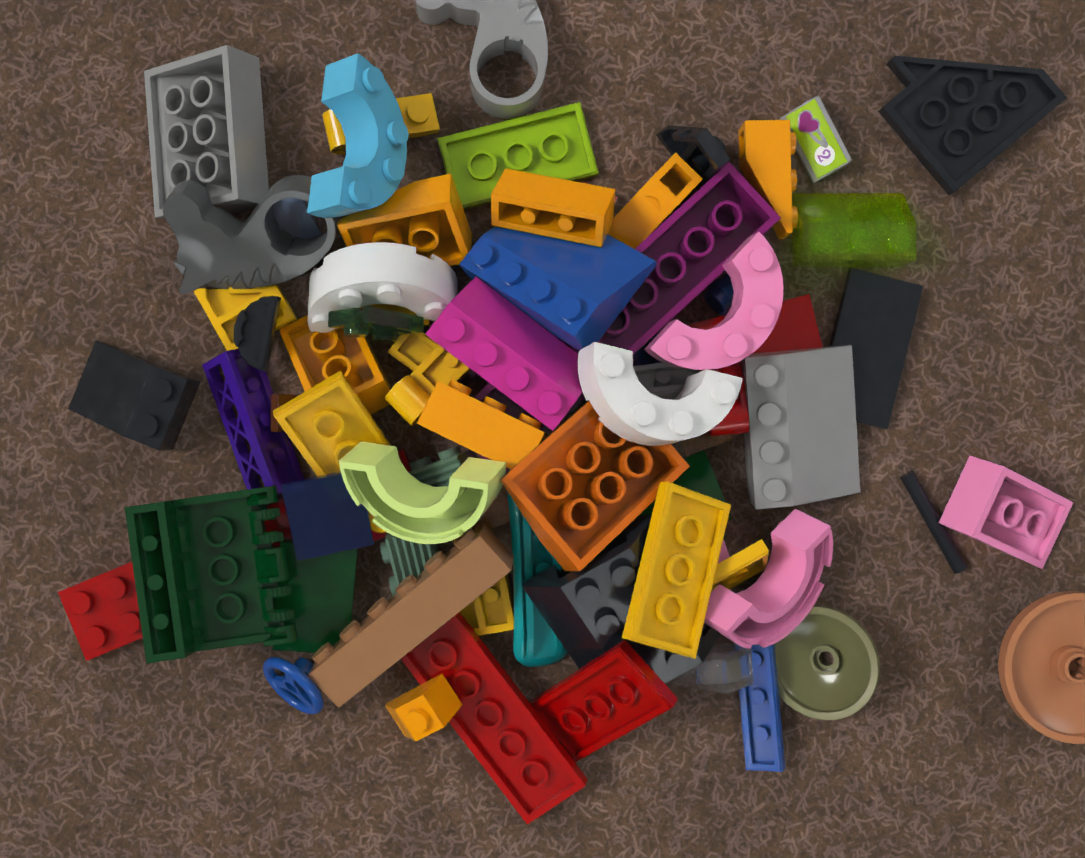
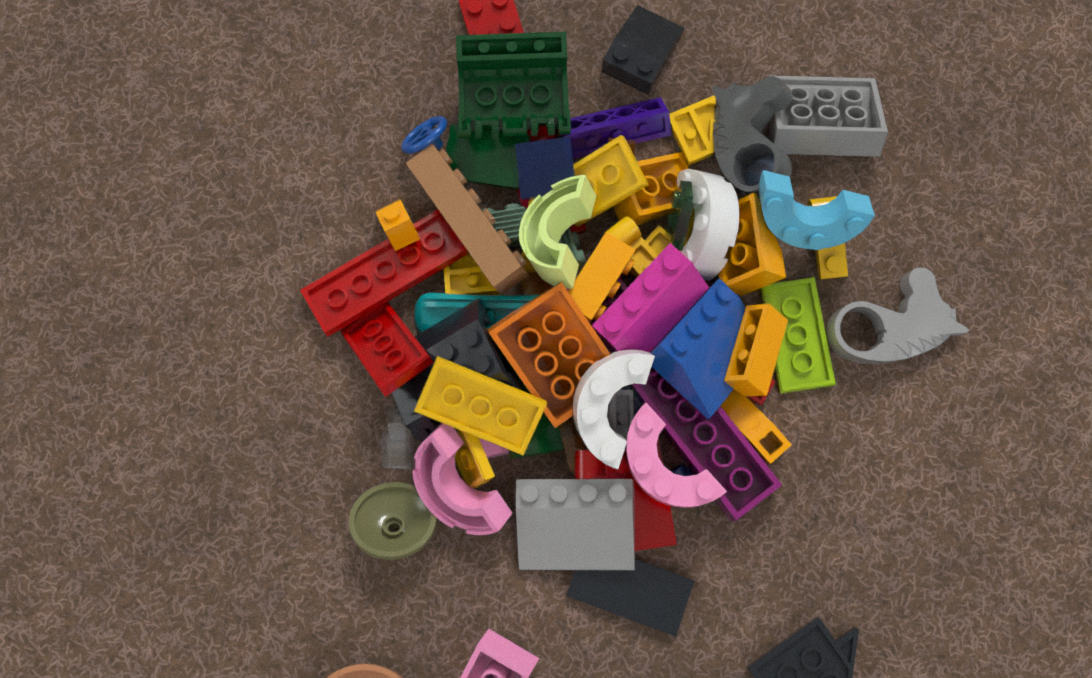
camera: 95 degrees right, 10 degrees down
(256, 331) = (681, 133): black plate -> none
(697, 148) = (789, 466): black wing -> none
(762, 714) = (360, 474): blue tile -> none
(766, 165) = (783, 520): light orange slope -> none
(817, 140) = (796, 562): slope -> none
(853, 230) = (724, 583): clear neon green slope -> none
(932, 520) = (494, 624): black bar -> none

